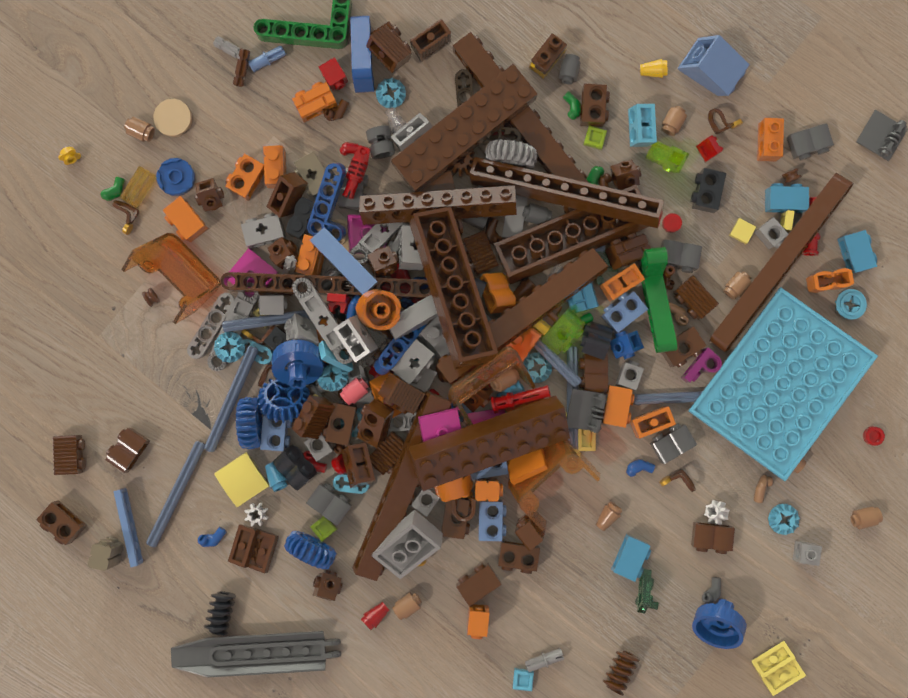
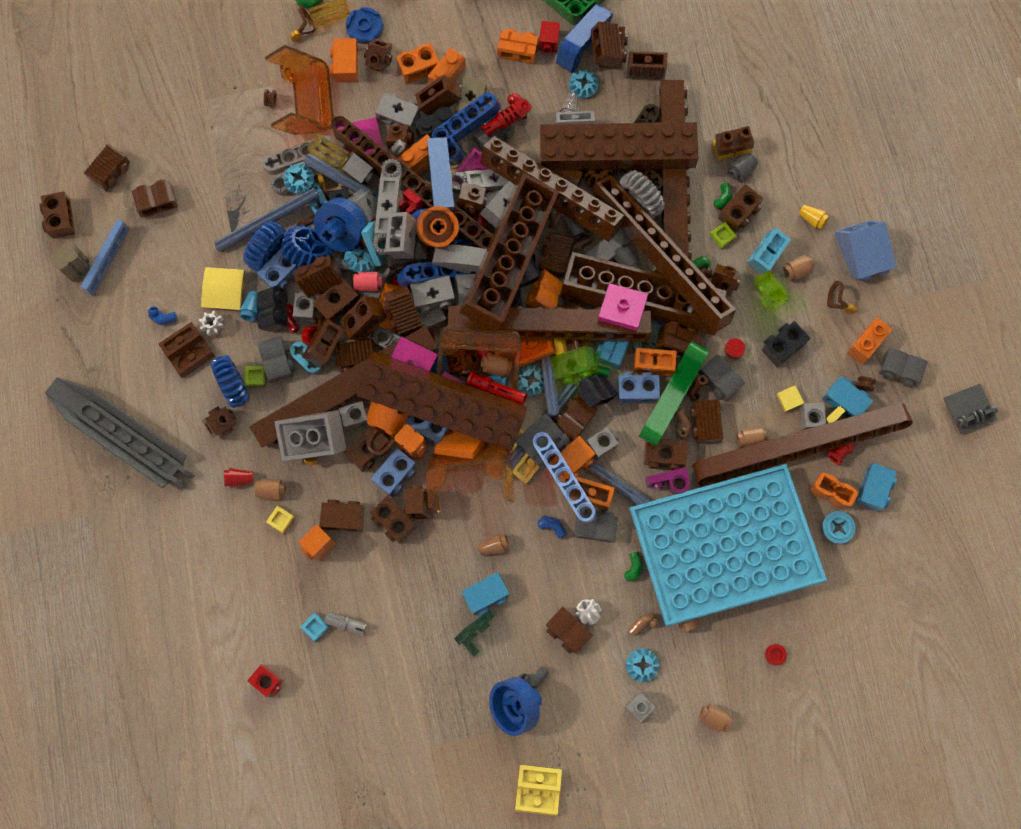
camera: 35 degrees right, 10 degrees down
(175, 494) = (162, 261): sand blue axle -> none
(219, 309) = (315, 143): none -> clear yellow tile
(220, 613) = (118, 377): black piece -> none
(338, 112) = (529, 68): reddish brown arm -> none
(384, 147) = (545, 110): dark grey wheel -> none
(432, 621) = (280, 519): none -> light yellow tile
(571, 261) = (623, 306): none -> plate
(621, 671) = (401, 682): reddish brown piece -> none
(626, 344) = (619, 414): blue brick -> none
(636, 435) = (562, 467): none -> light blue beam
(676, 475) = (583, 575): reddish brown piece -> none
(709, 148) = (812, 311): red tile -> none
(727, 455) = (636, 568): none -> green arm

